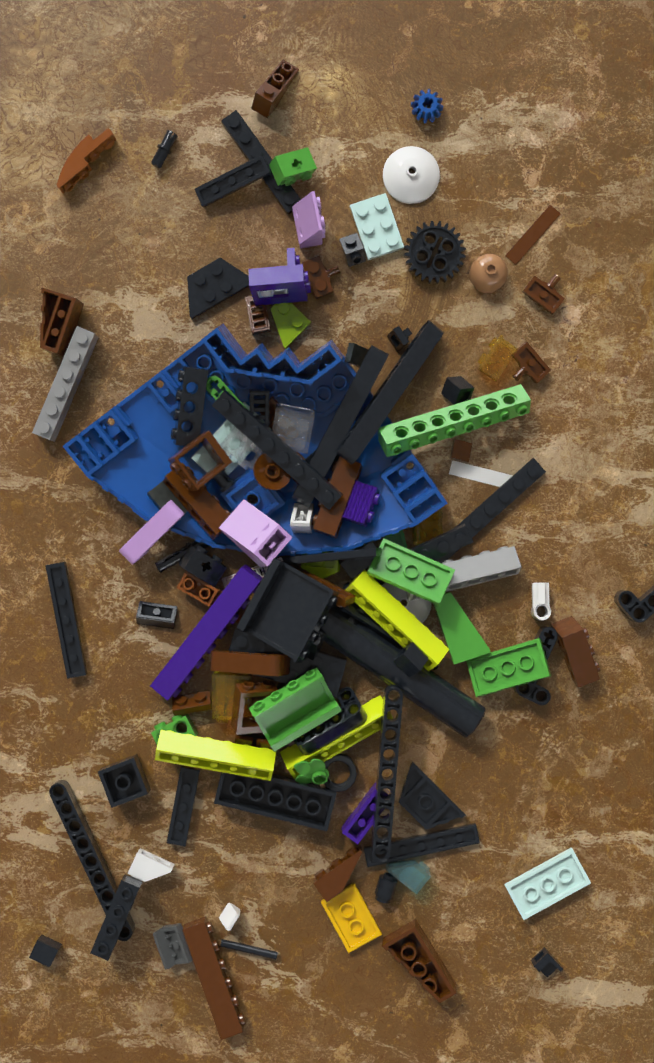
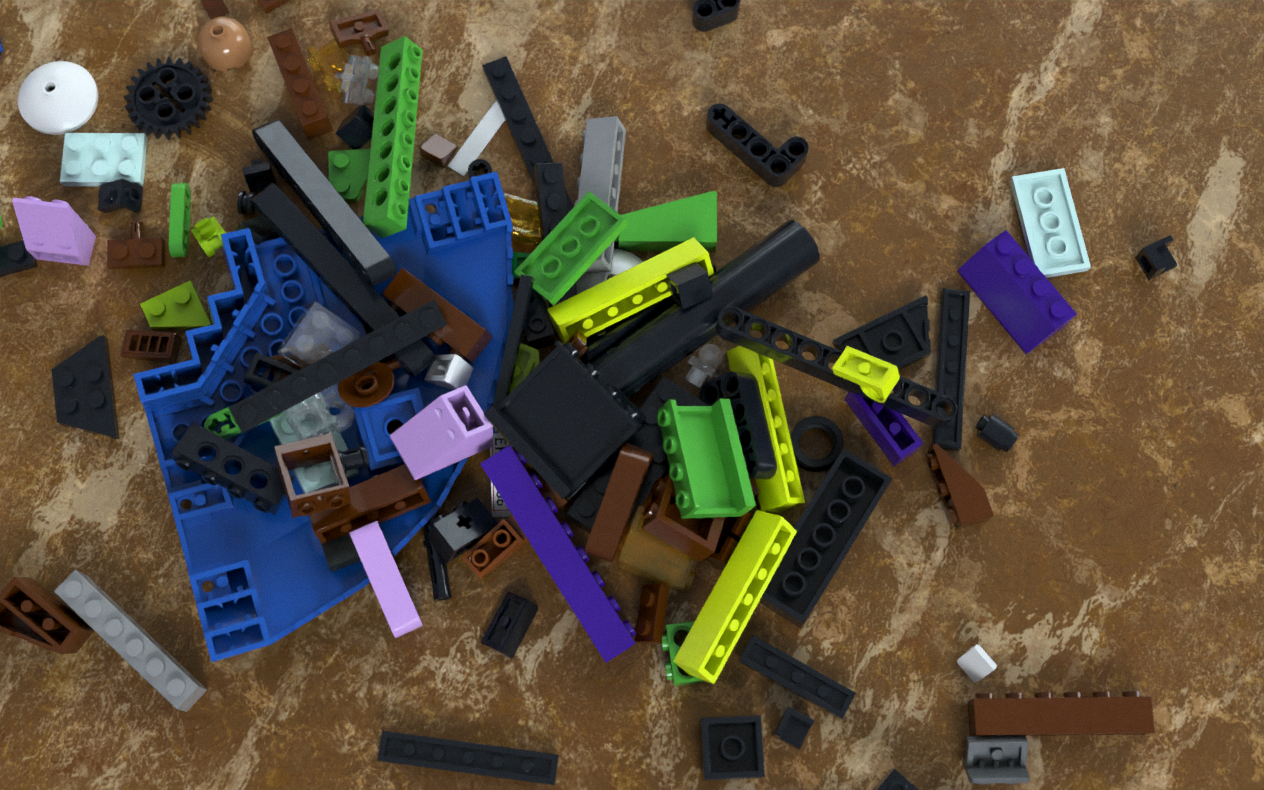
camera: 65 degrees left, 15 degrees down
(149, 866) = (870, 757): white slope -> none
(151, 813) = (793, 727): none -> black panel
(248, 949) = (1032, 653): black bar -> none
(280, 283) = (118, 294): dark purple brick -> none
(311, 772) = (802, 471): bright green plate -> none
(342, 325) = (208, 235): none -> lime plate
(350, 297) = (179, 220): none -> bright green beam
(352, 918) = (1027, 494): yellow tile -> none
(361, 504) = (456, 286): dark purple brick -> none
(364, 684) = (704, 366): none -> clear hips
(377, 337) = (244, 204): none -> black bush
(384, 798) = (872, 374): none -> neon yellow plate
(410, 873) = (986, 392): clear light blue slope -> none
(418, 956) = (1100, 418): reddish brown wedge -> none
(423, 396) = (349, 172): none -> bright green wing
(458, 480) = (476, 165): none -> black bush
(475, 338) = (300, 84): none -> reddish brown brick
(488, 377) = (355, 80): none -> clear hips
(488, 874) = (1016, 292): none -> dark purple slope
(508, 667) = (744, 175): bright green plate -> none
(540, 597) = (669, 114): white piece -> none
(577, 651) = (753, 88): reddish brown wedge -> none

